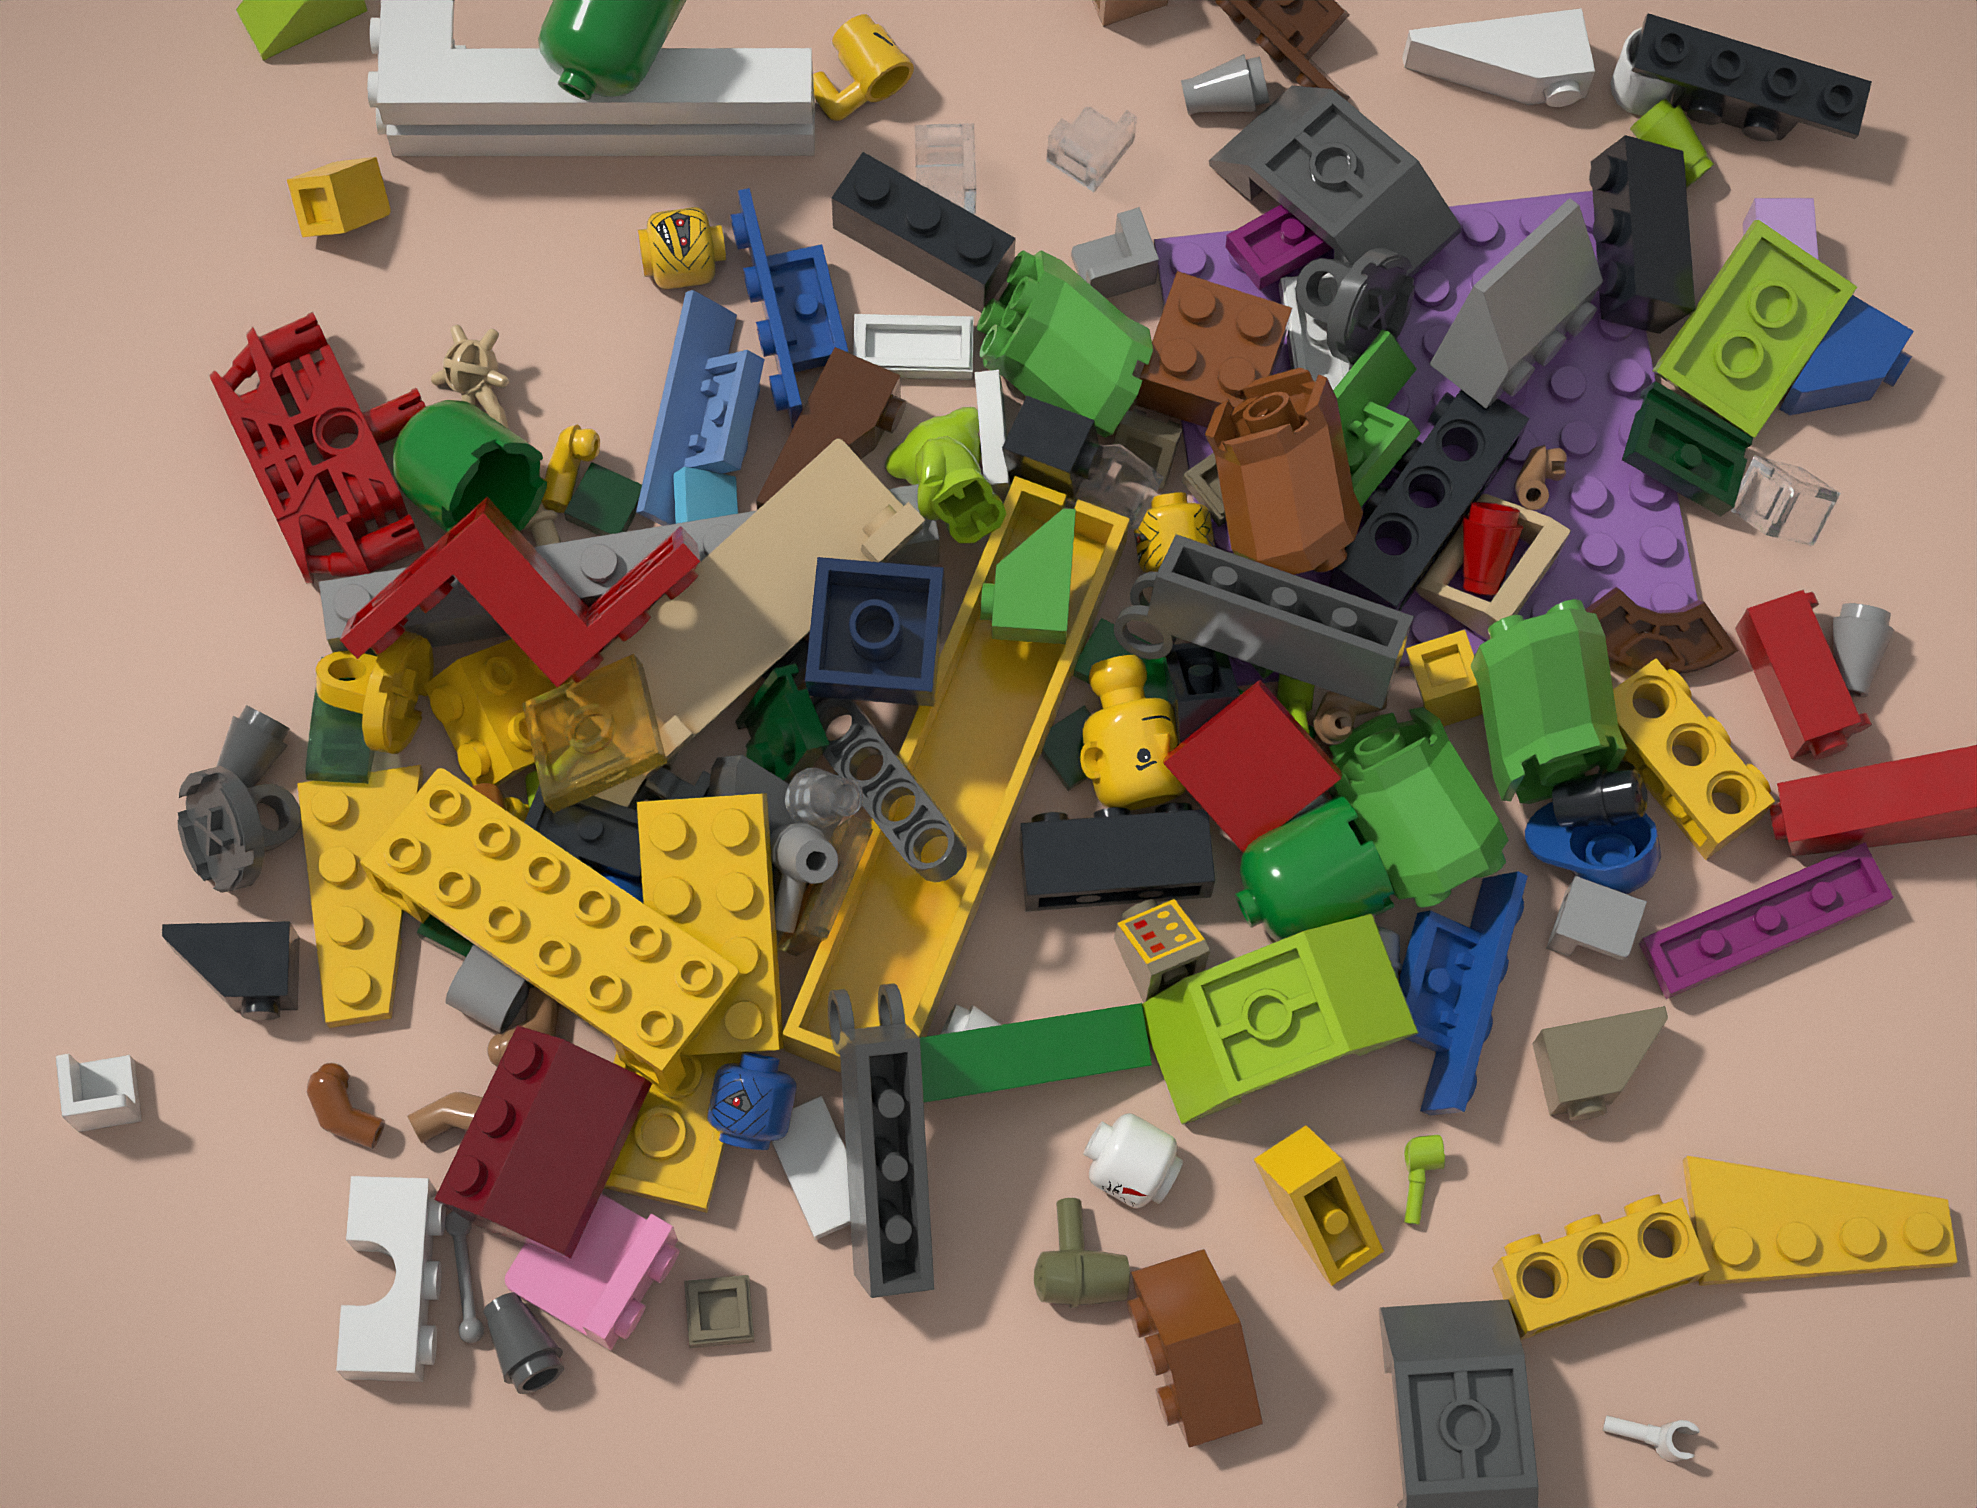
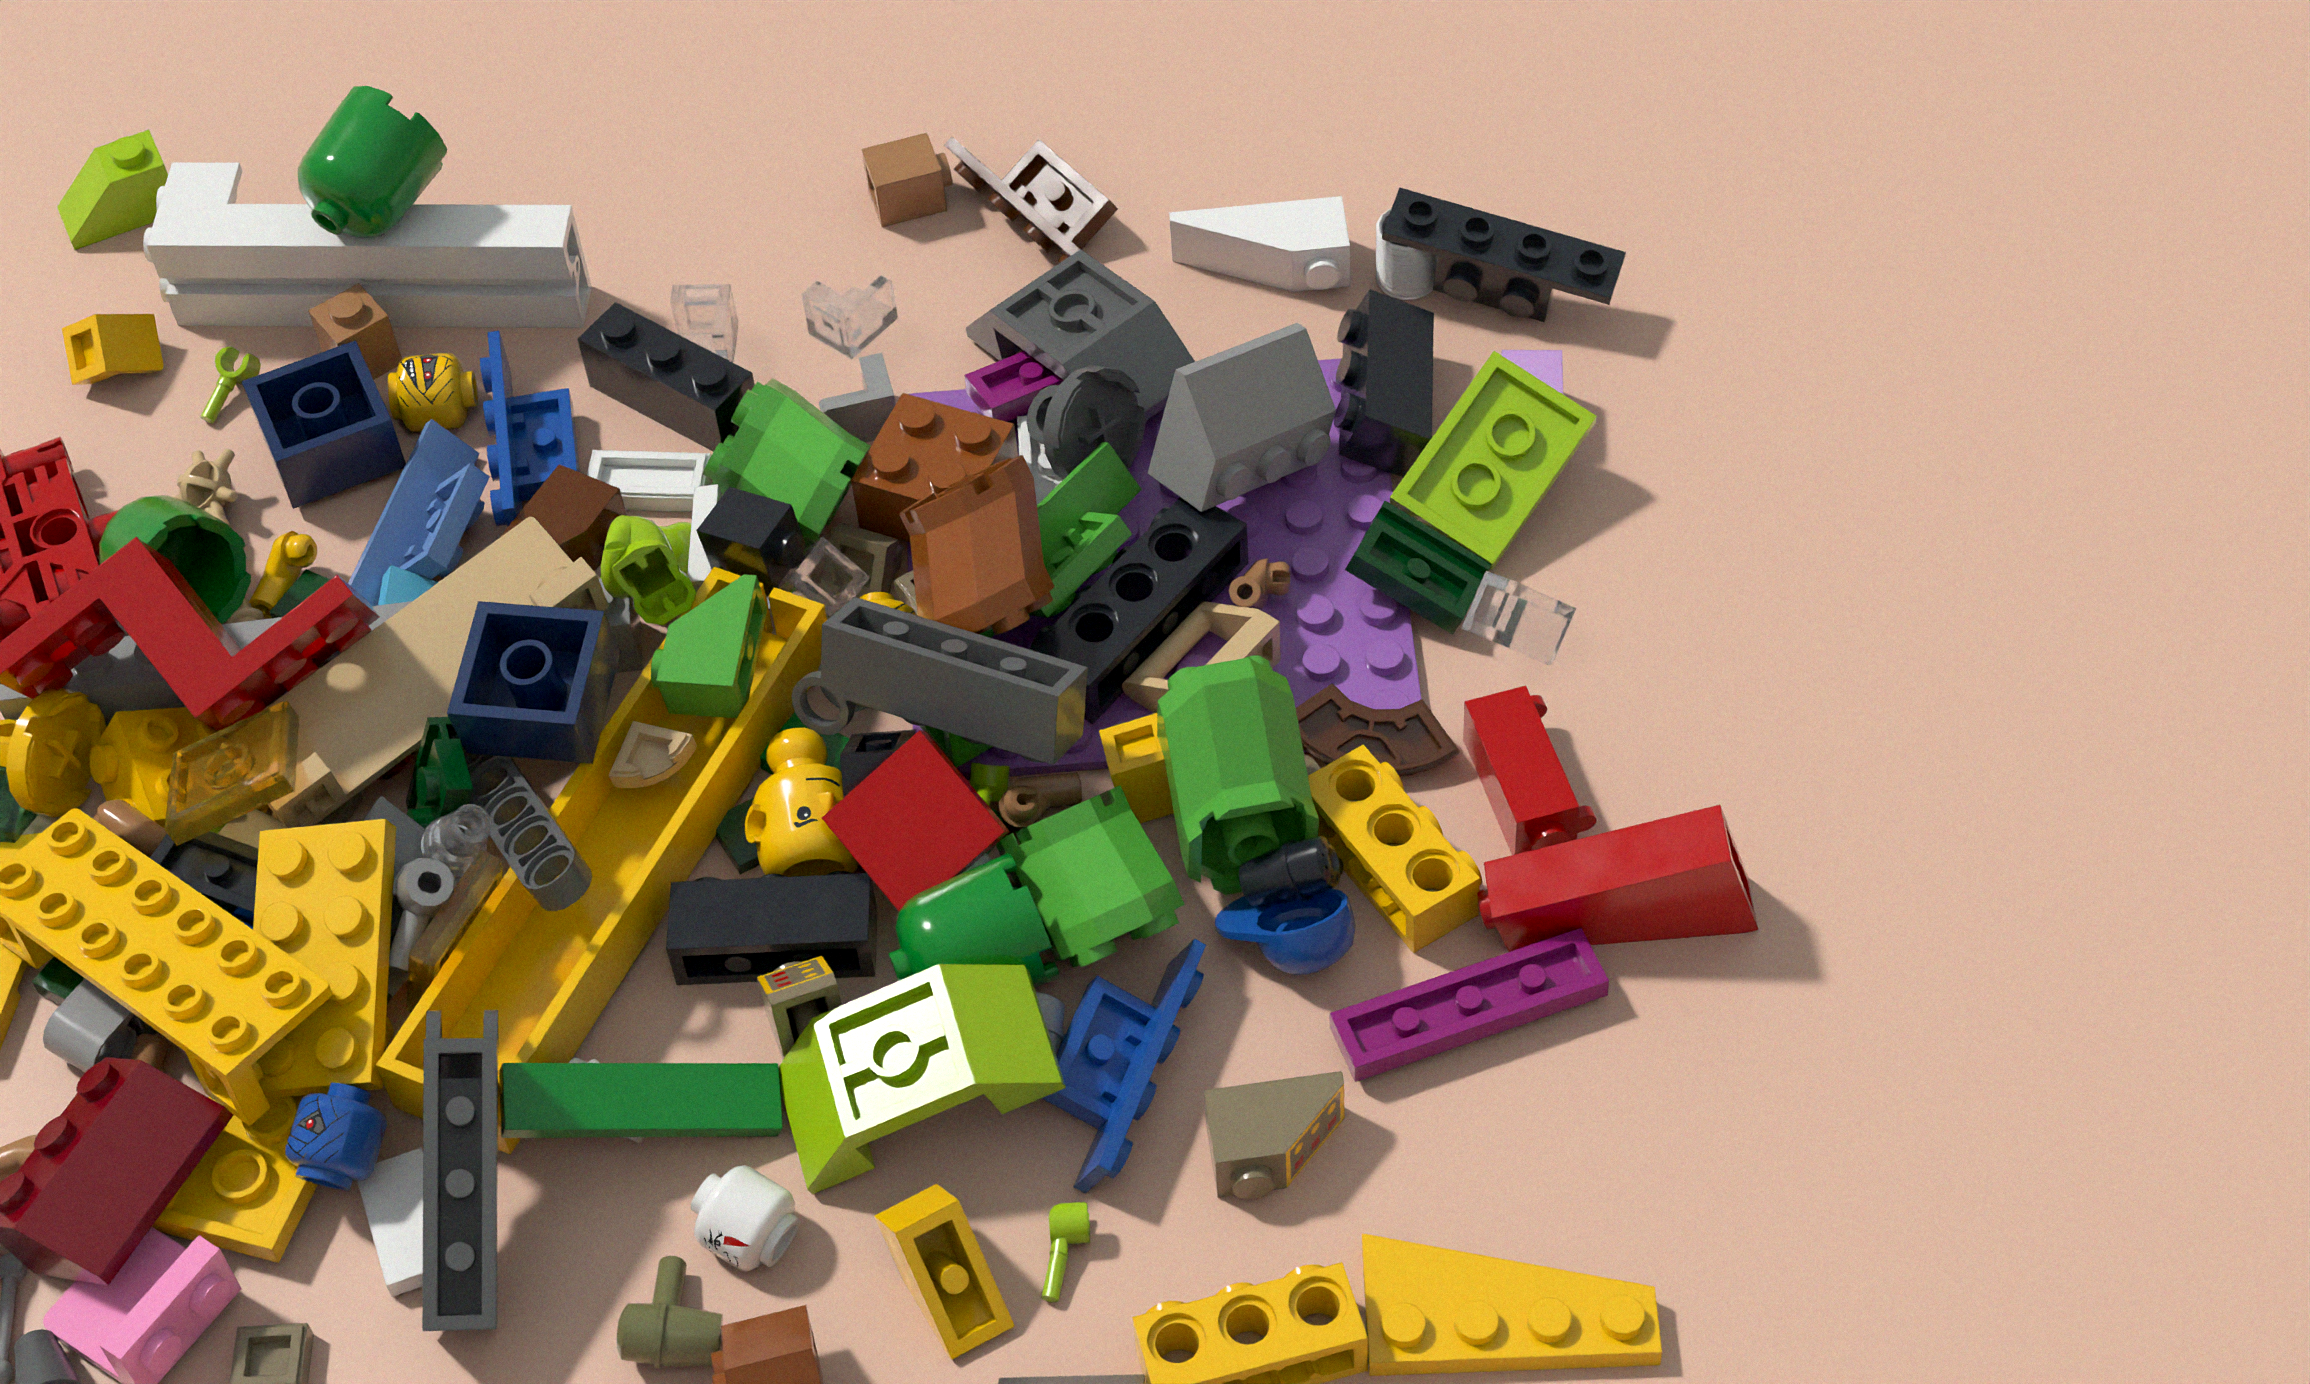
camera: 10 degrees right, 20 degrees down
(464, 234) = (224, 364): none -> lime hand
(495, 781) = (130, 825): none -> medium nougat arm
(584, 295) = (324, 424): none -> dark blue brick
(592, 182) = (357, 317): none -> medium nougat brick
(870, 60) = (648, 245): yellow piece -> none
(983, 688) = (650, 755): none -> tan tile
(1227, 88) = (992, 268): light grey cone -> none
(1488, 545) = (1197, 631): red cone -> none
(1596, 920) = (1278, 990): light grey panel -> none
(1672, 129) = (1426, 293): lime cone -> none
(1851, 360) = (1593, 497): blue slope -> none
(1859, 644) = (1590, 746): light grey cone -> none

